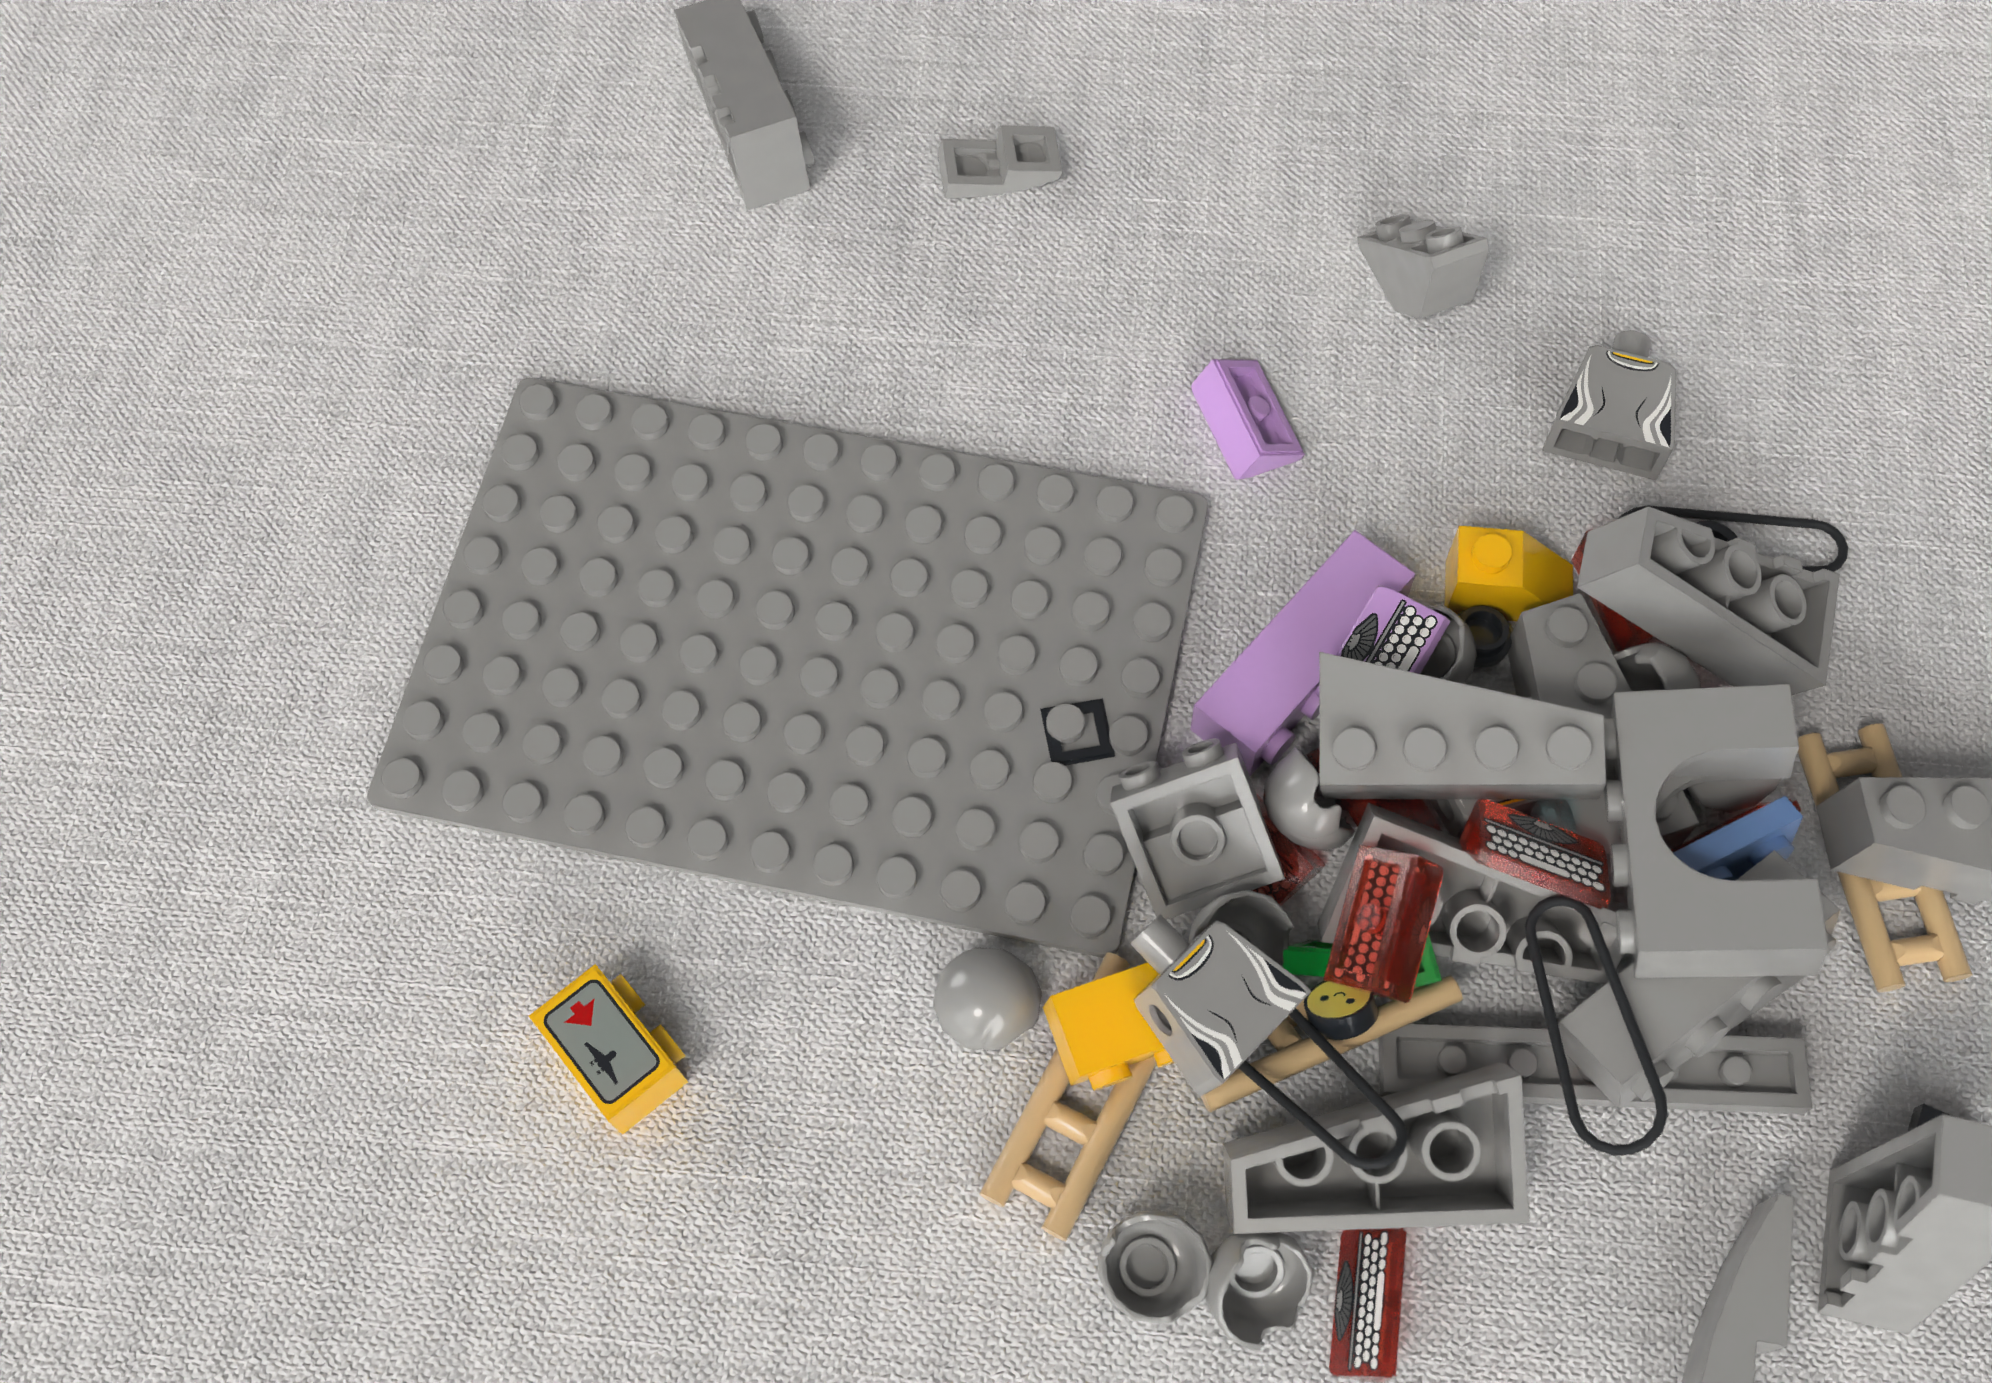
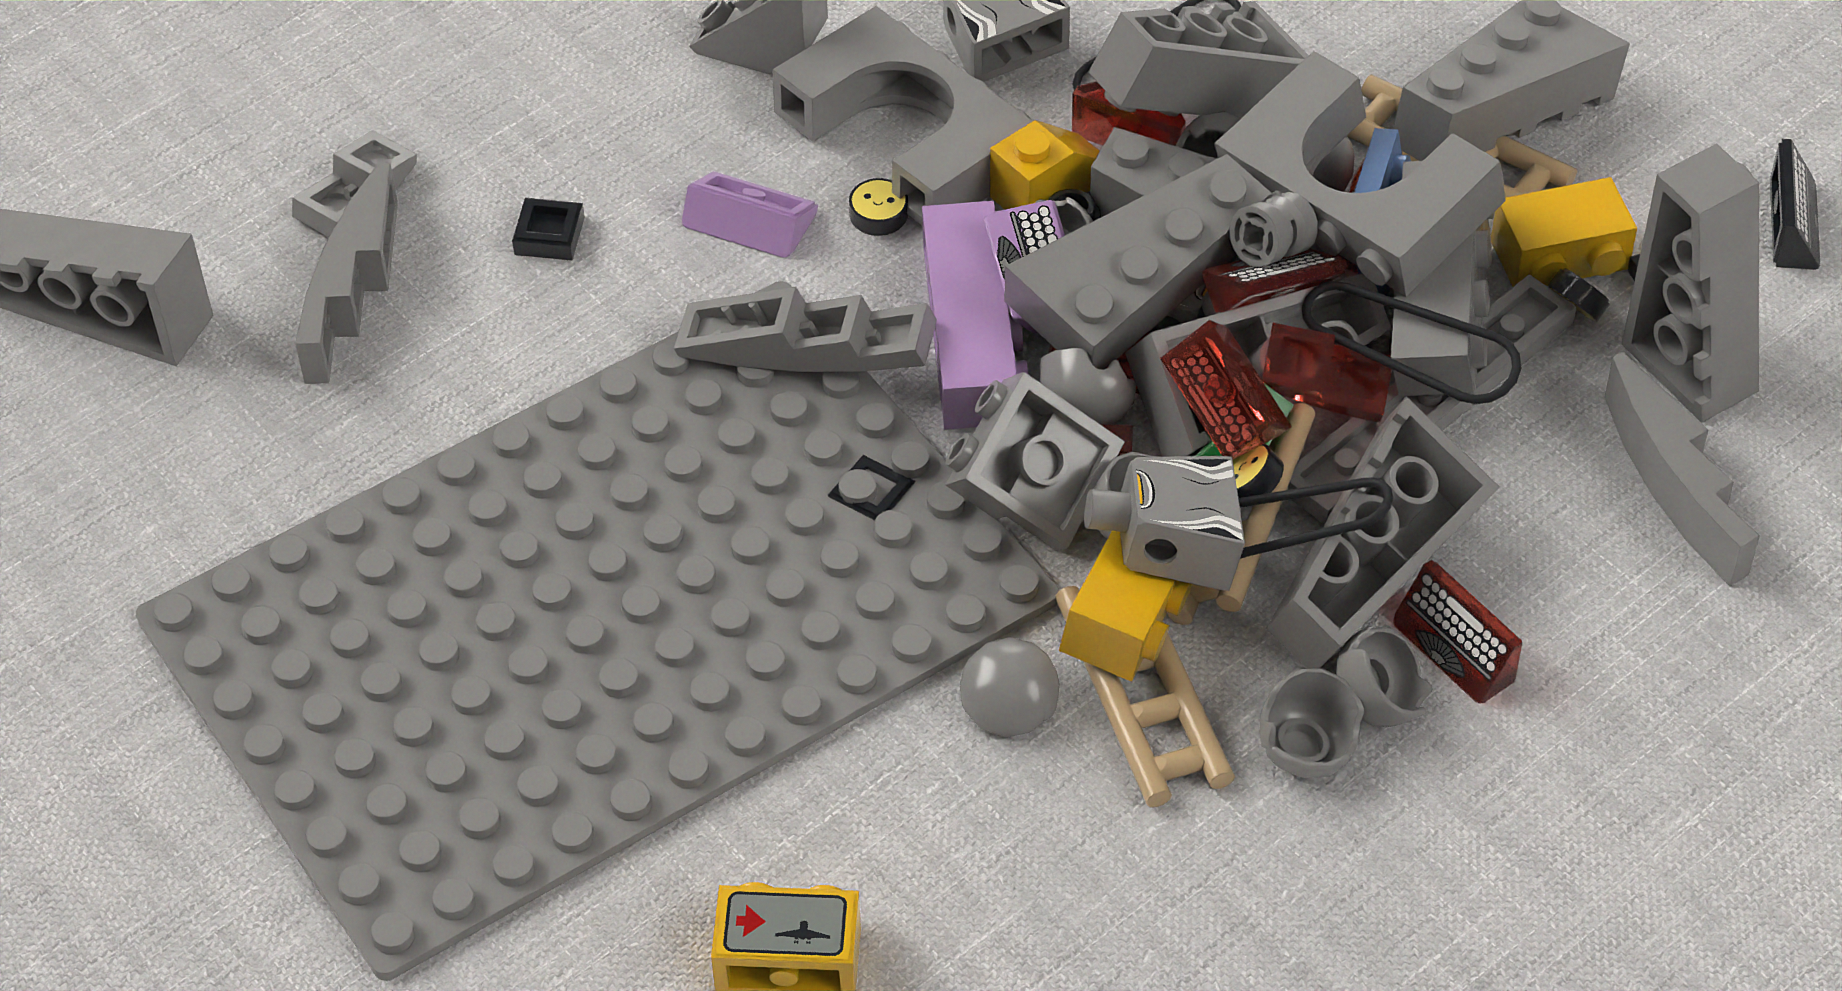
camera: 50 degrees left, 15 degrees down
(928, 222) = (351, 262): none -> light grey slope
(1091, 309) = (548, 229): none -> black tile
(1154, 566) = (821, 336): none -> light grey slope
(1346, 495) = (876, 209): none -> tile
(1475, 372) = (885, 63): none -> light grey arch
(1498, 975) = (1323, 374): none -> clear red slope
(1583, 820) = (1273, 229): none -> light grey wheel
(1830, 1097) = (1580, 293): none -> black tile
(1884, 1029) = (1564, 227): none -> yellow brick

